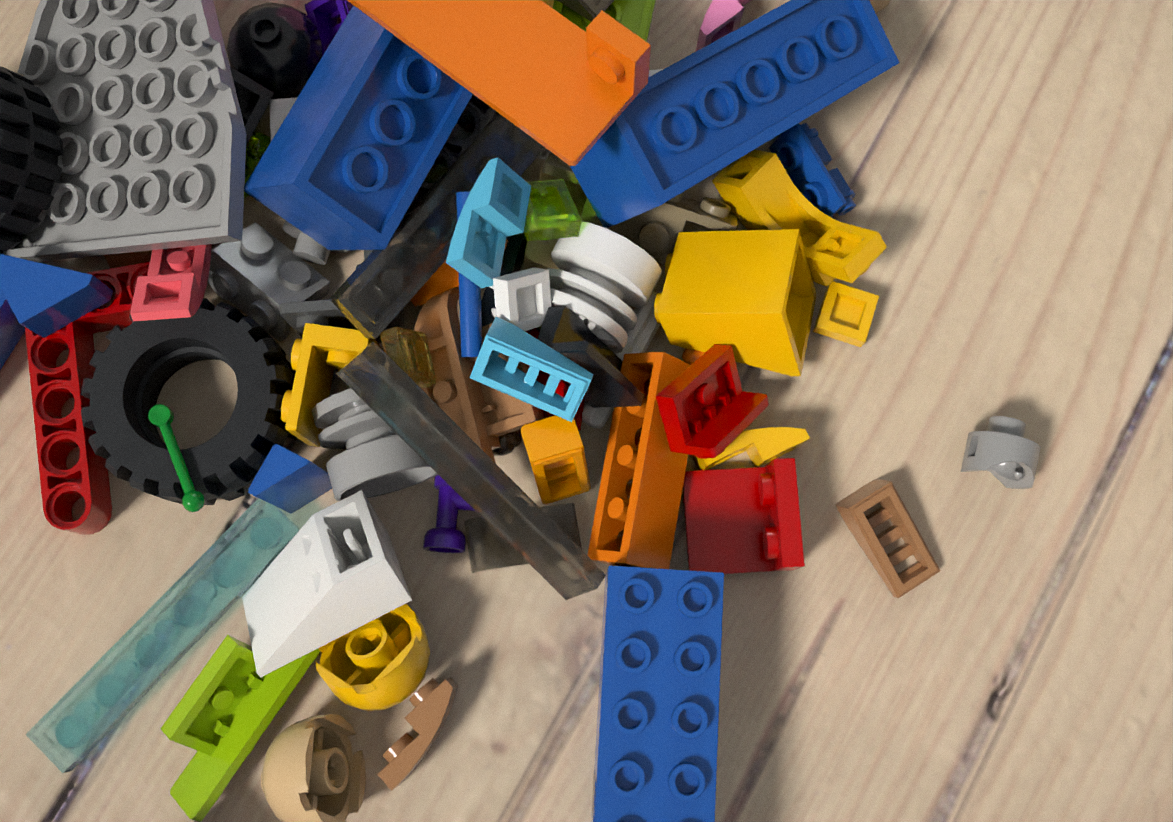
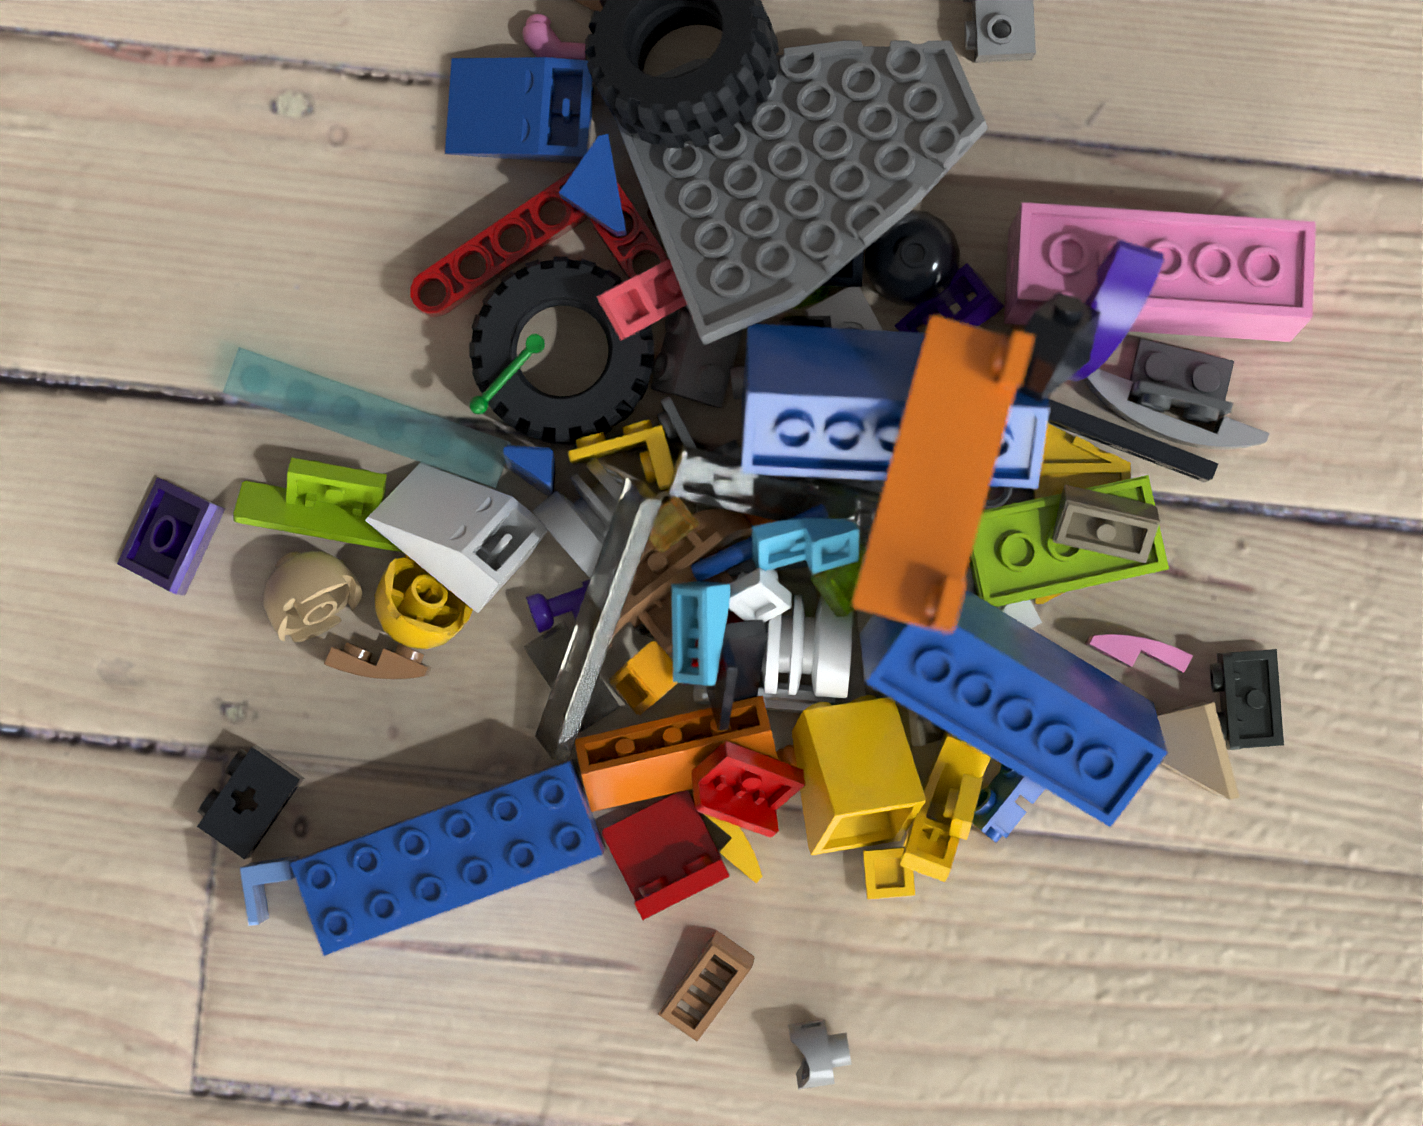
camera: 65 degrees right, 10 degrees up
(818, 200) = (962, 805): none -> yellow plate

